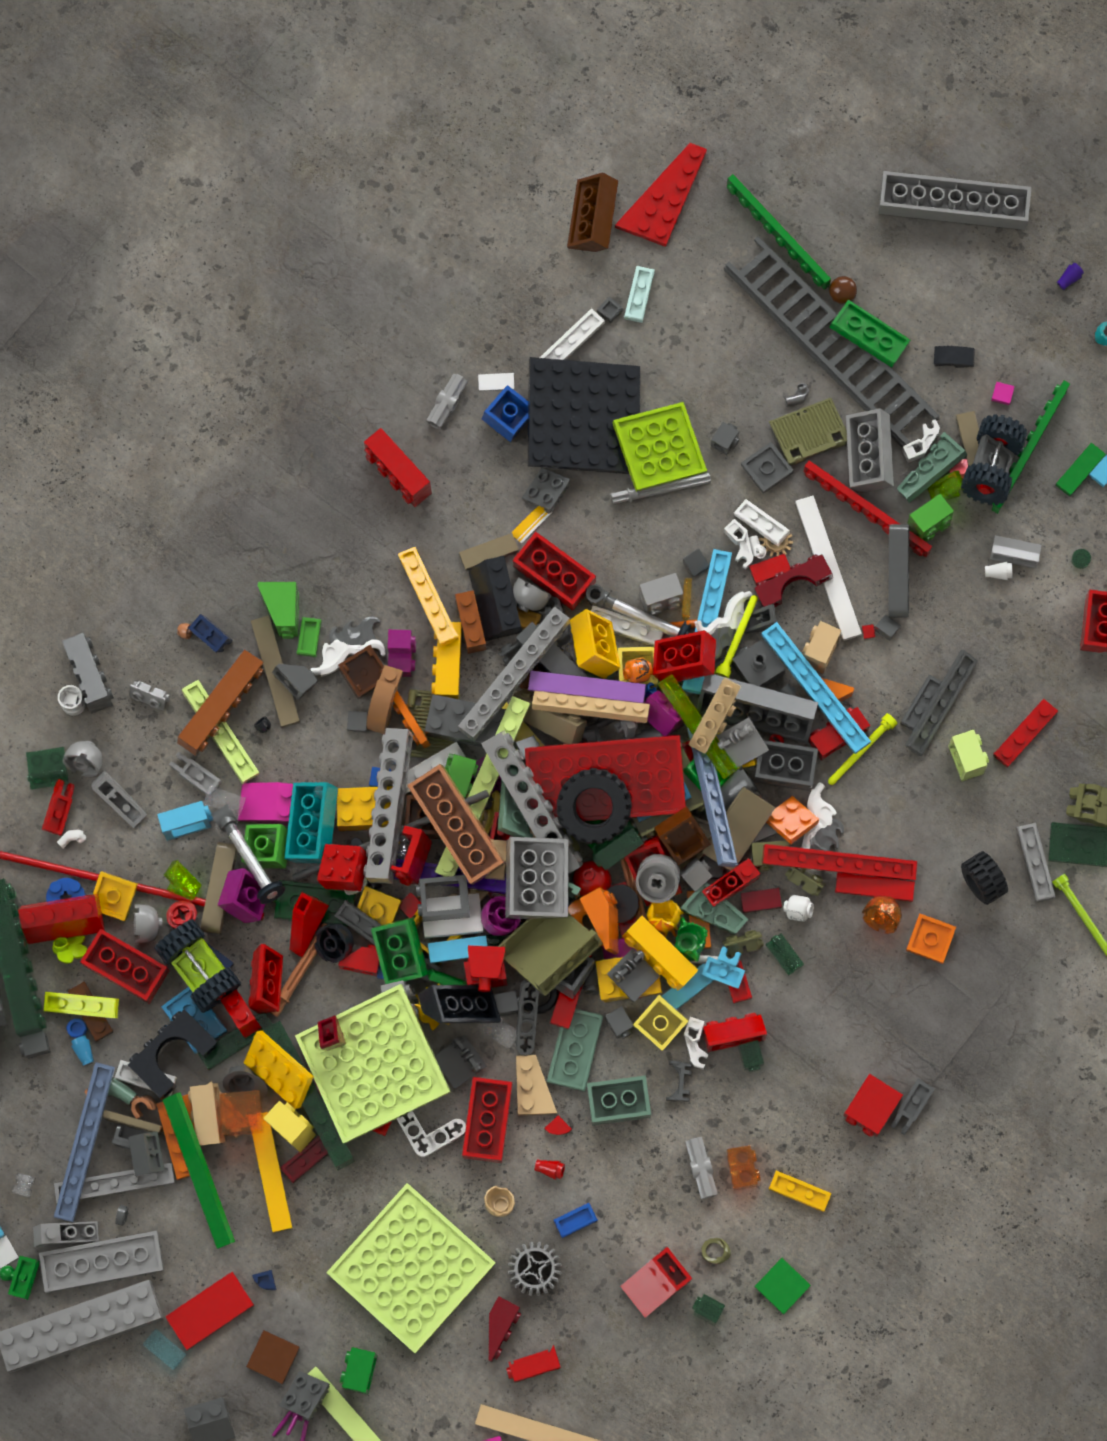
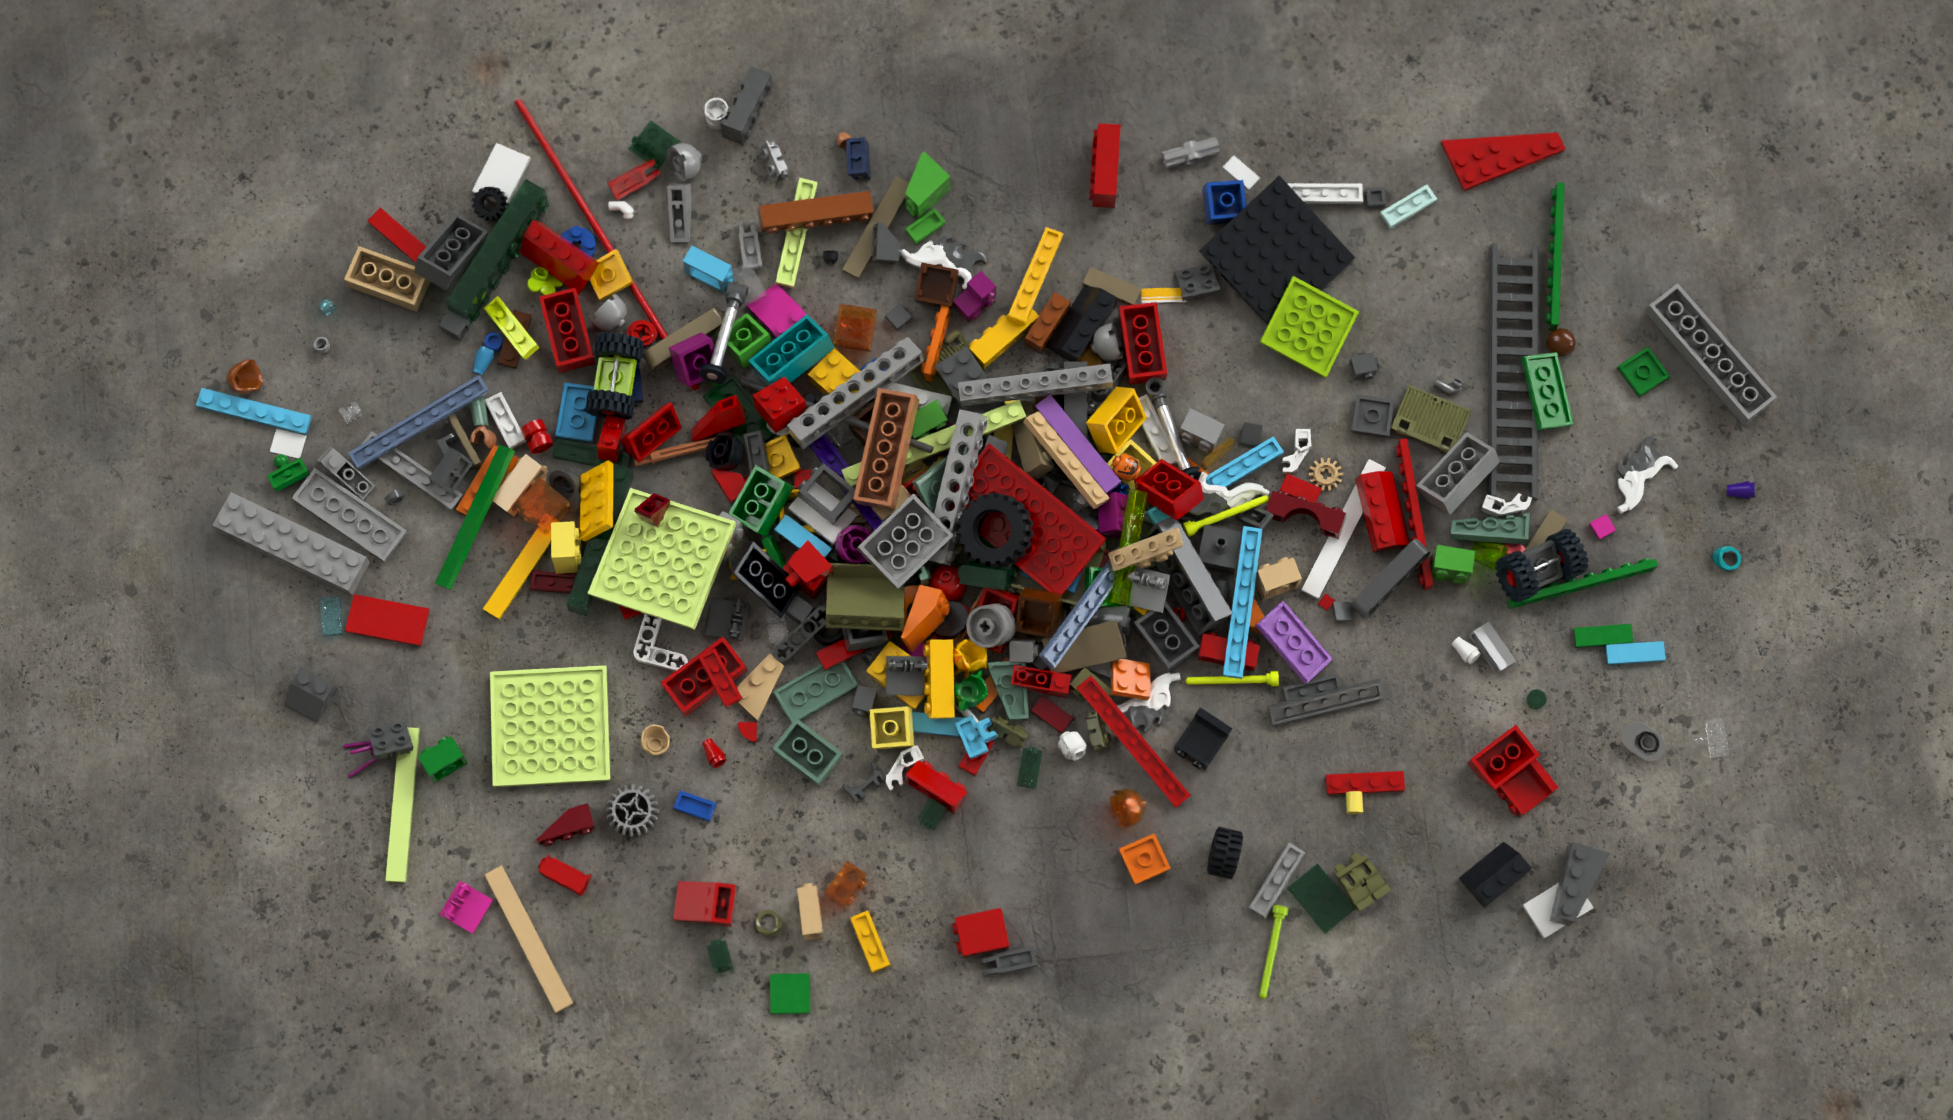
camera: 40 degrees right, 0 degrees up
(182, 881) = (665, 309): clear neon green slope -> none
(183, 1028) = (513, 410): black arch -> none
(183, 1066) = (537, 437): none -> red wheel
(265, 1280) = (445, 637): dark blue tile -> none
(273, 1357) = (397, 693): reddish brown tile -> none
(336, 759) = (855, 327): none -> clear orange brick
(382, 699) = (927, 315): medium nougat arch -> none
(415, 857) = (836, 446): red panel -> none
(502, 1108) = (720, 678): none -> red tile
(593, 213) = (1434, 117): reddish brown slope -> none
(631, 494) = (1307, 374): light grey axle -> none
(701, 1168) = (817, 856): light grey piece -> none
(739, 1212) = (810, 912): none -> tan window
(757, 549) = (1305, 467): white arm -> none
(762, 522) = (1328, 451): white tile -> none
(842, 529) = (1382, 510): none -> red slope
(874, 886) = (1142, 784): red tile -> none
(878, 681) = (1294, 642): none -> medium lavender tile
(883, 813) = (1202, 739): none -> black panel
(919, 257) = (1643, 372): none -> green tile
(954, 355) = (1594, 466): black slope -> none
(968, 755) = (1304, 755): yellowish green brick -> none
(985, 329) = (1637, 469): none -> piece
(1033, 754) = (1354, 802): none -> light yellow piece

